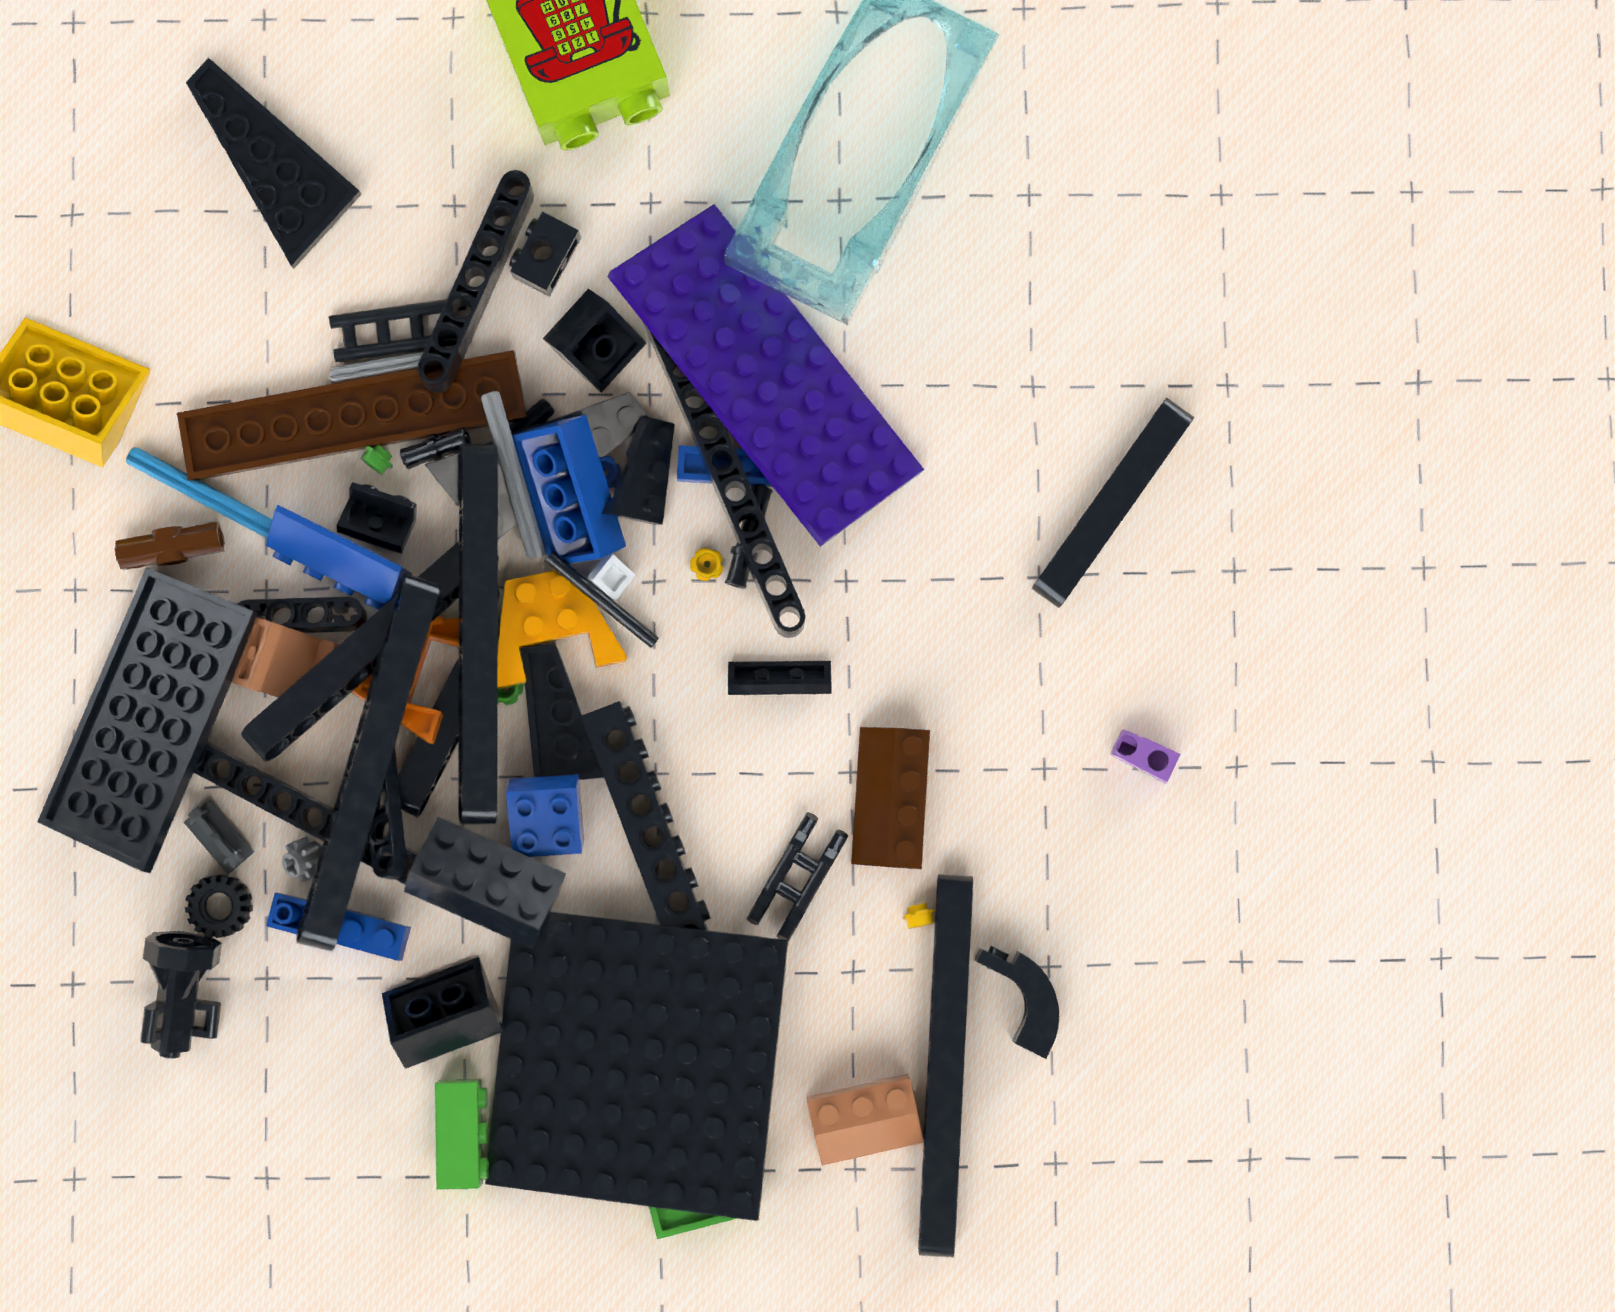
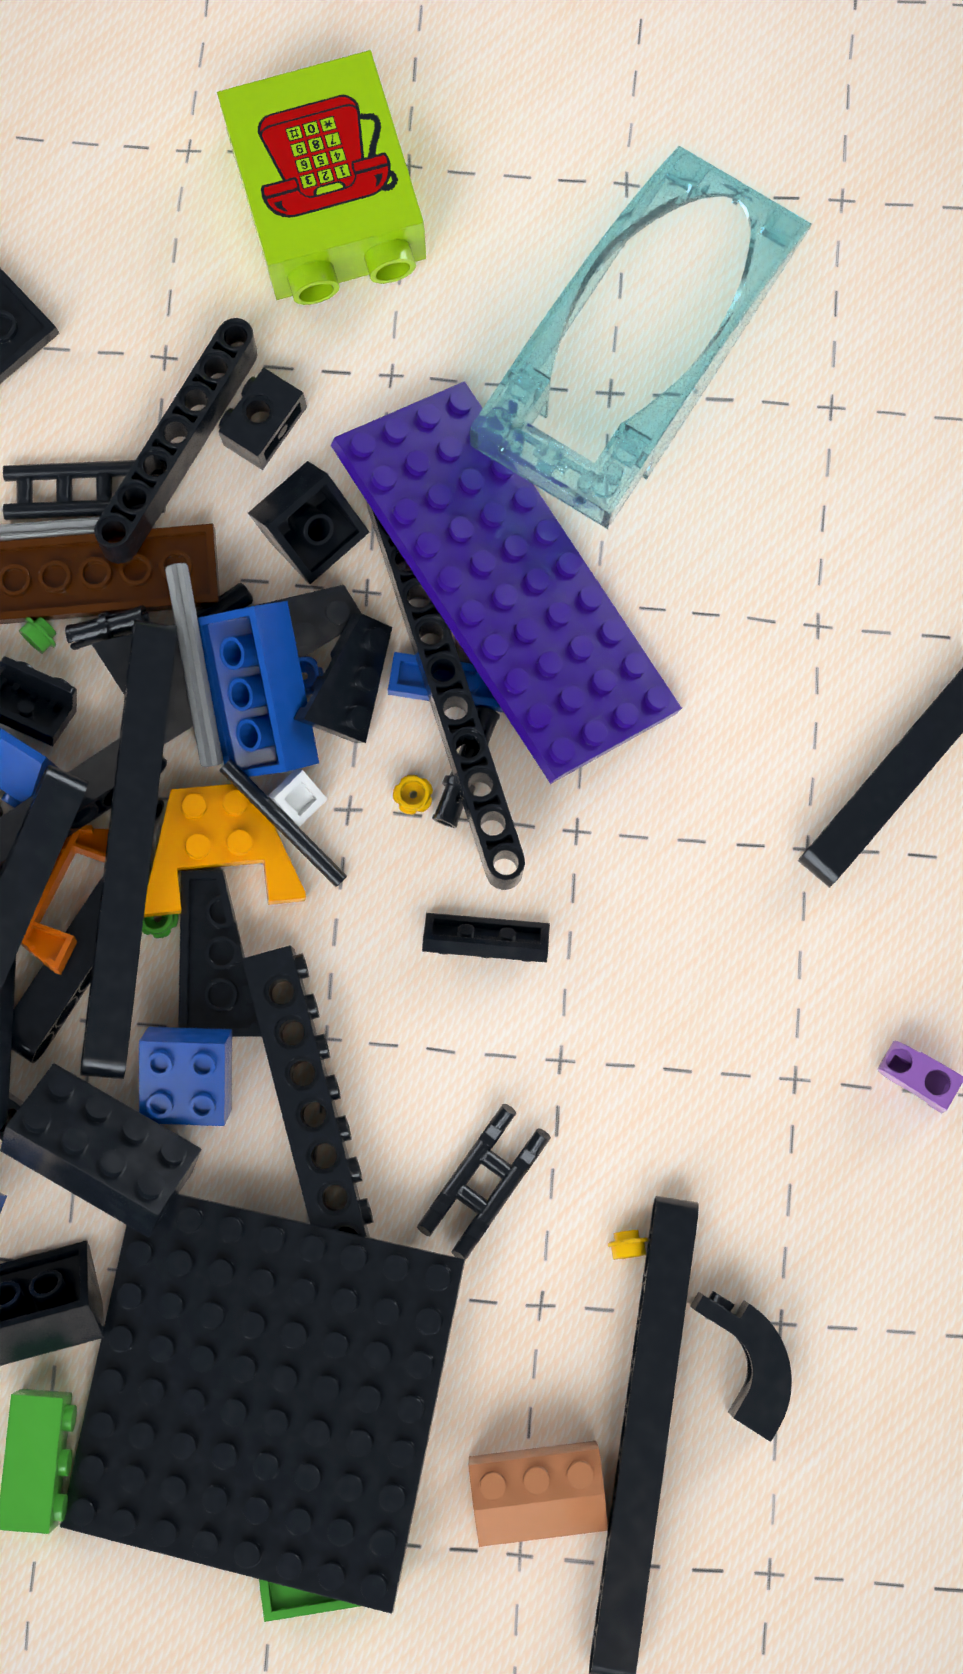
camera: 10 degrees right, 5 degrees down
(890, 797) = (607, 1095): reddish brown slope -> none

